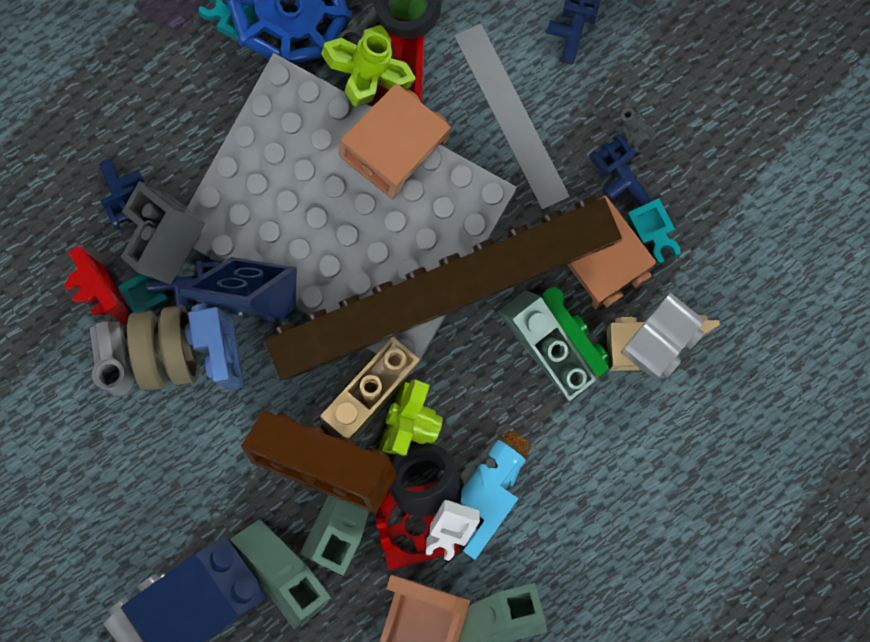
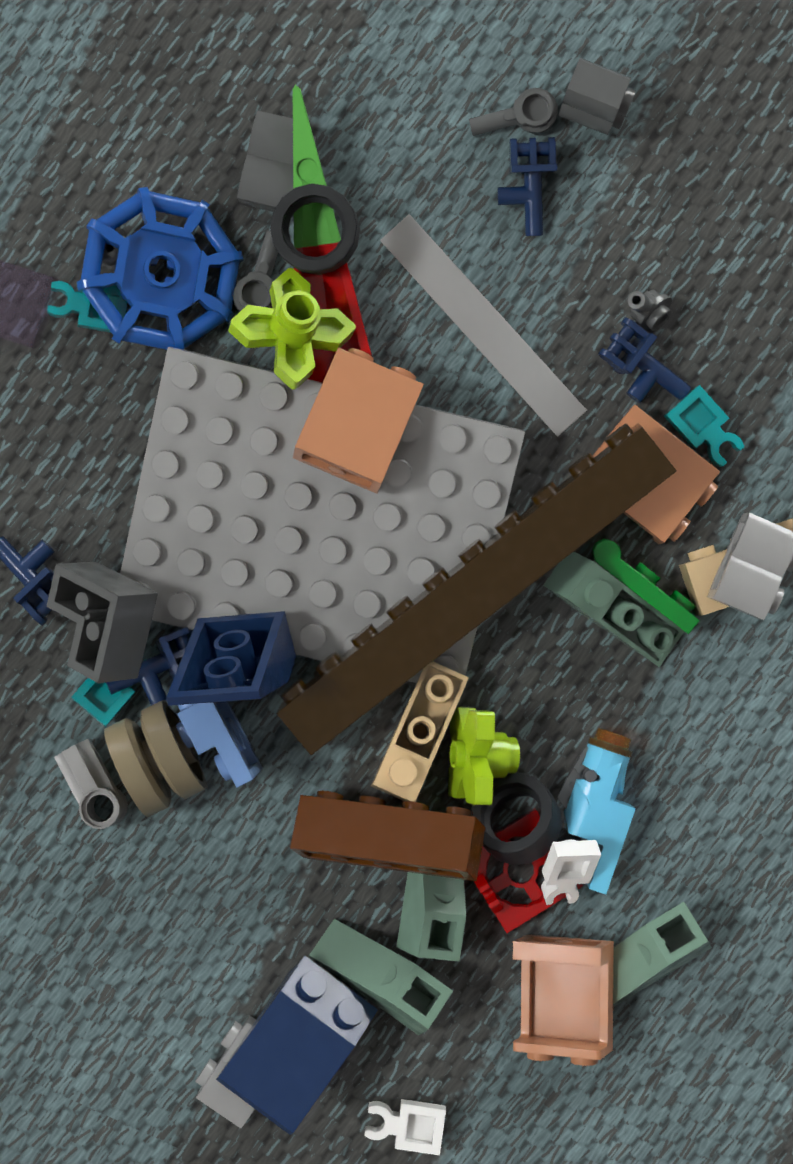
camera: 20 degrees left, 10 degrees up
(96, 285) = (49, 708): red piece -> none

